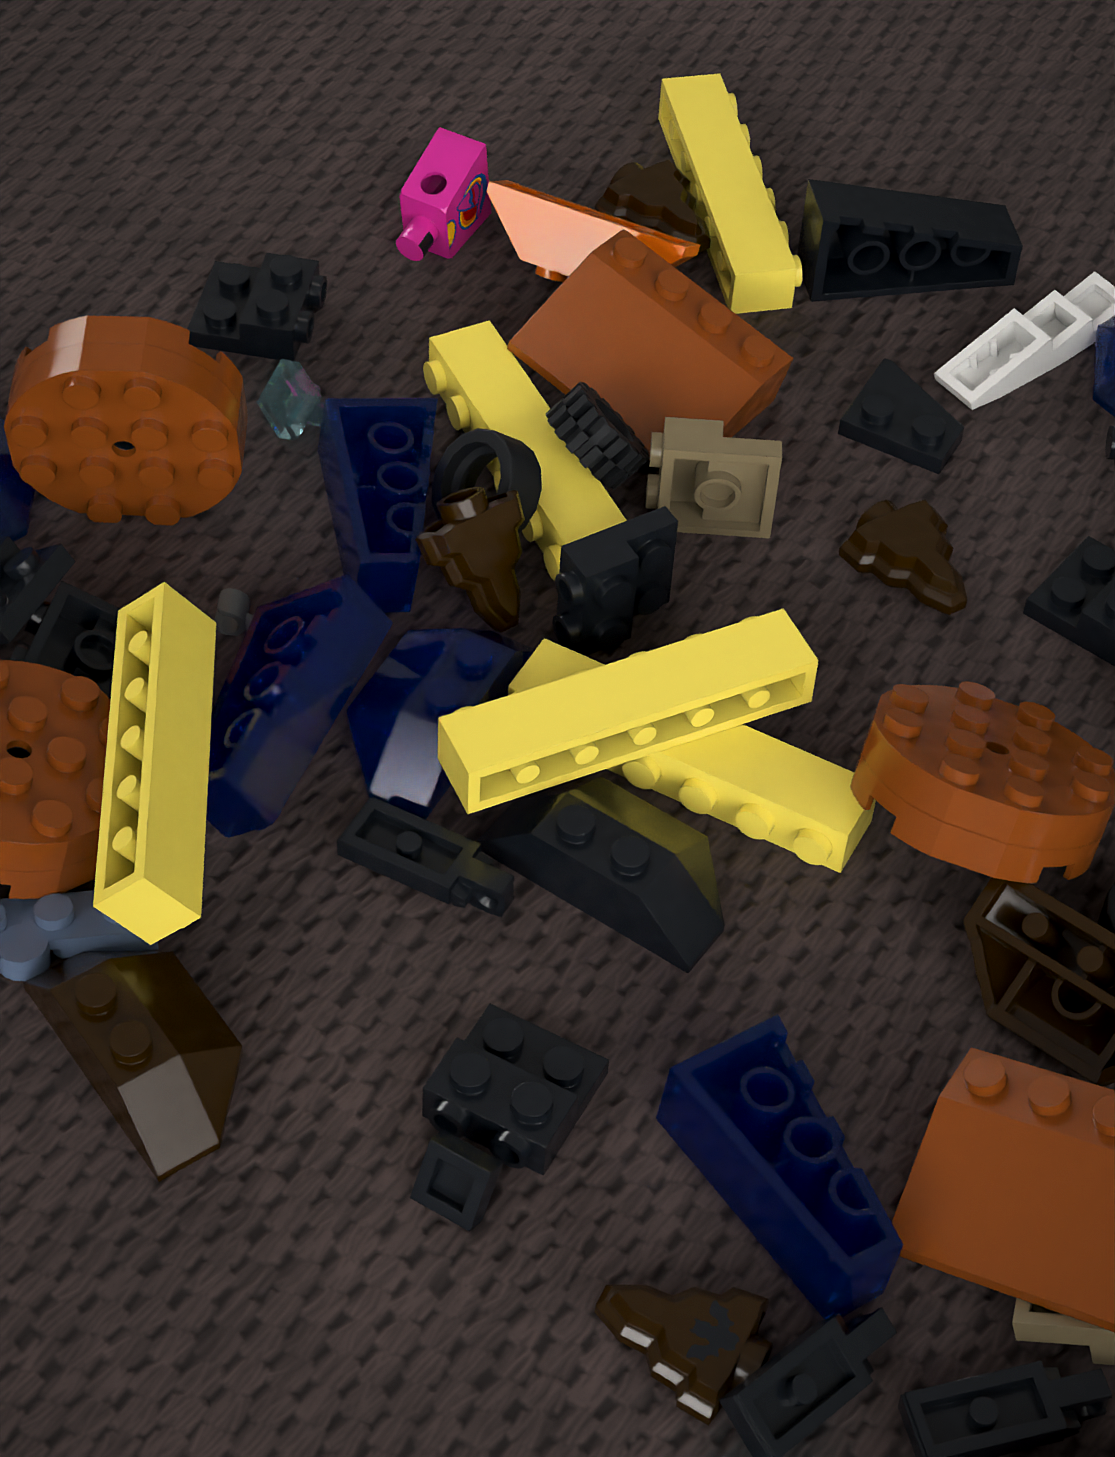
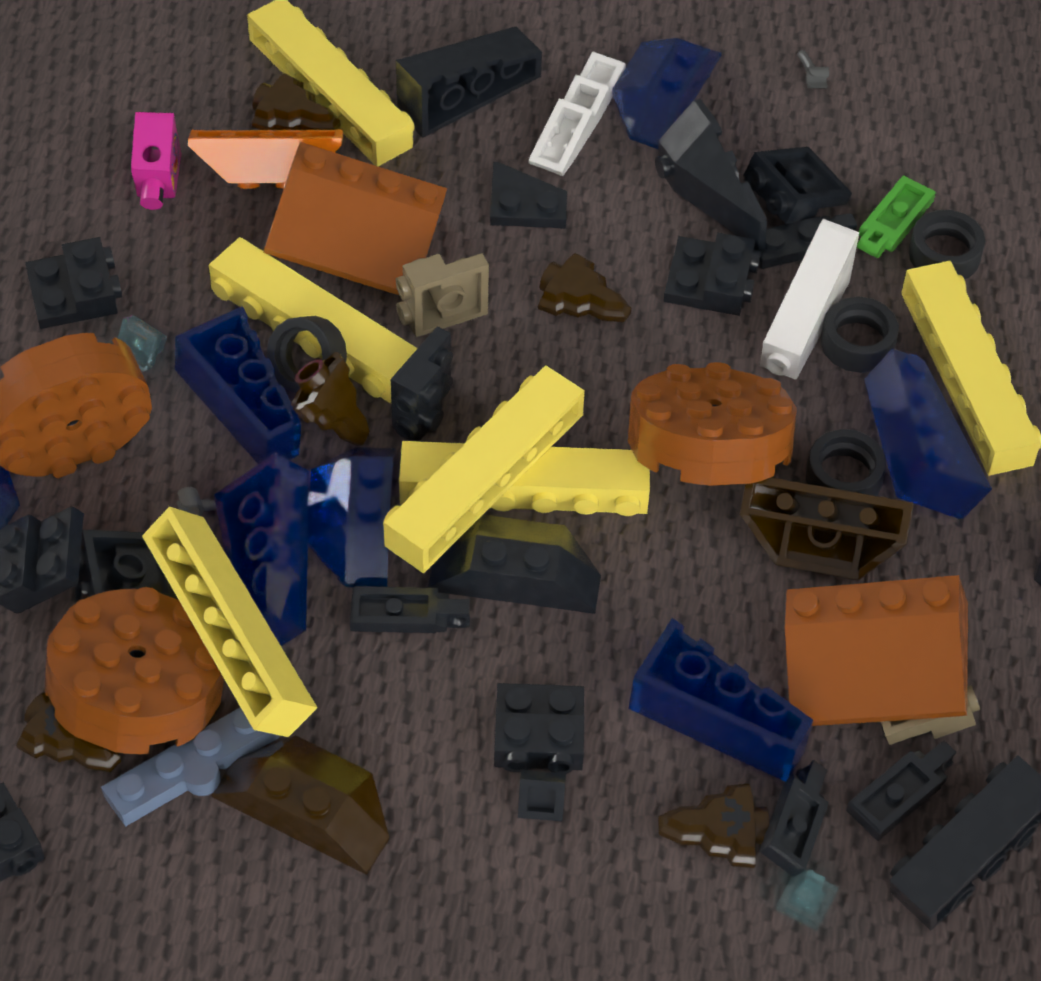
camera: 25 degrees left, 5 degrees up
(597, 436) = (357, 291): black tyre -> none

